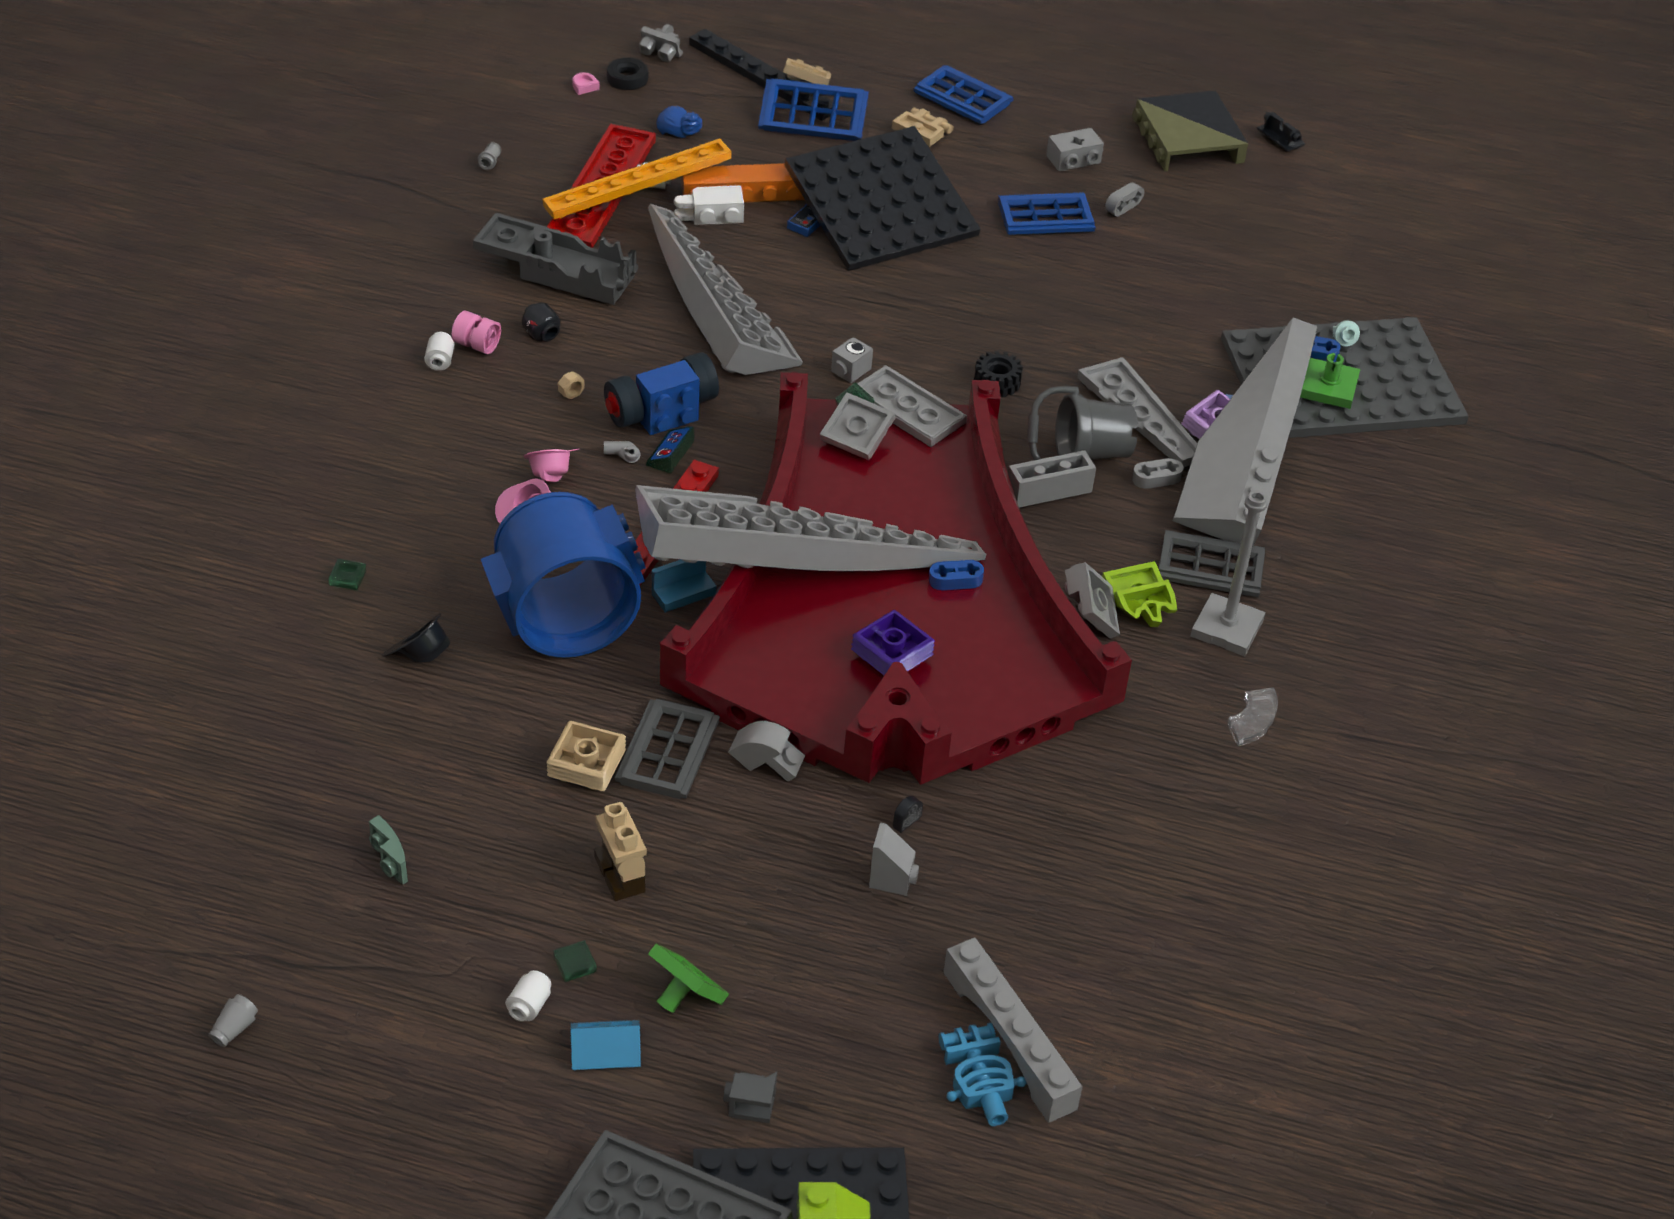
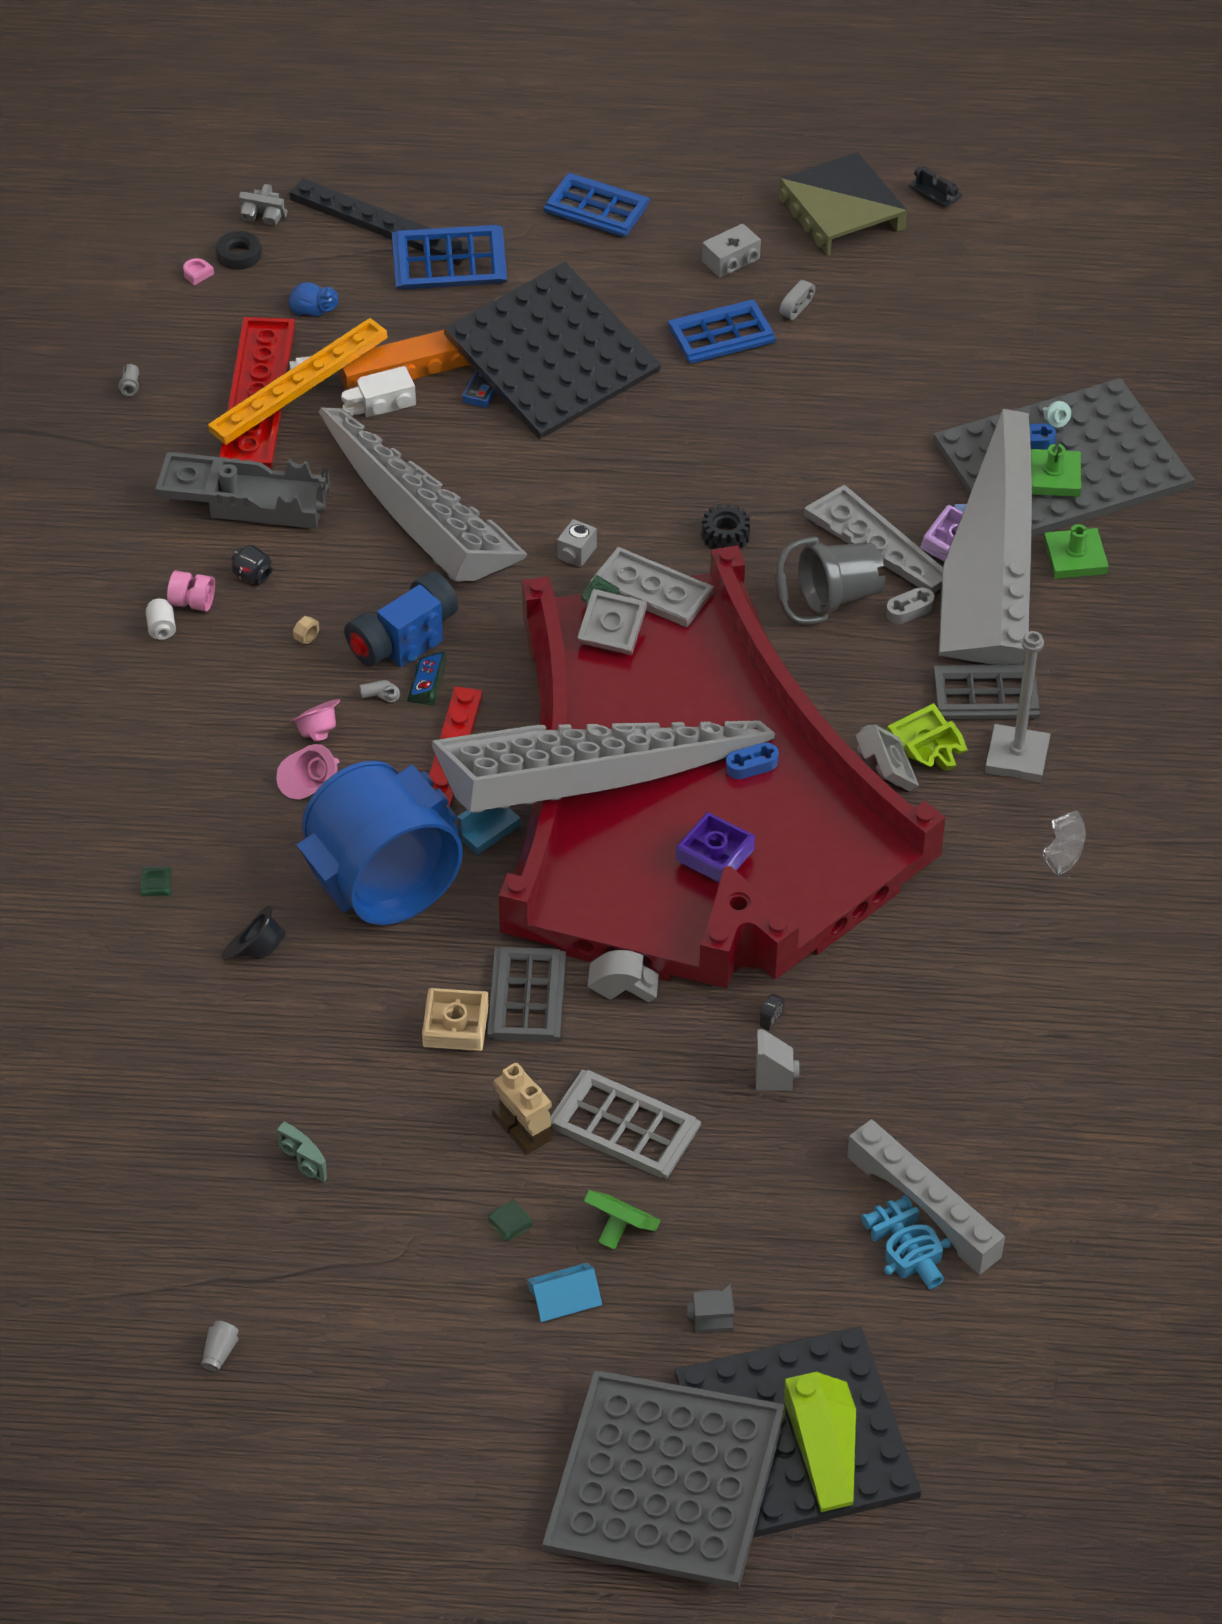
camera: 10 degrees left, 5 degrees up
(529, 996) = (481, 1262): white brick -> none
(762, 931) = (675, 1148): none -> light grey piece
(798, 70) = (436, 214): tan plate -> none
(928, 126) = (562, 249): tan plate -> none
(1052, 478) = (813, 634): light grey brick -> none
(1334, 457) = (1076, 552): none -> bright green tile

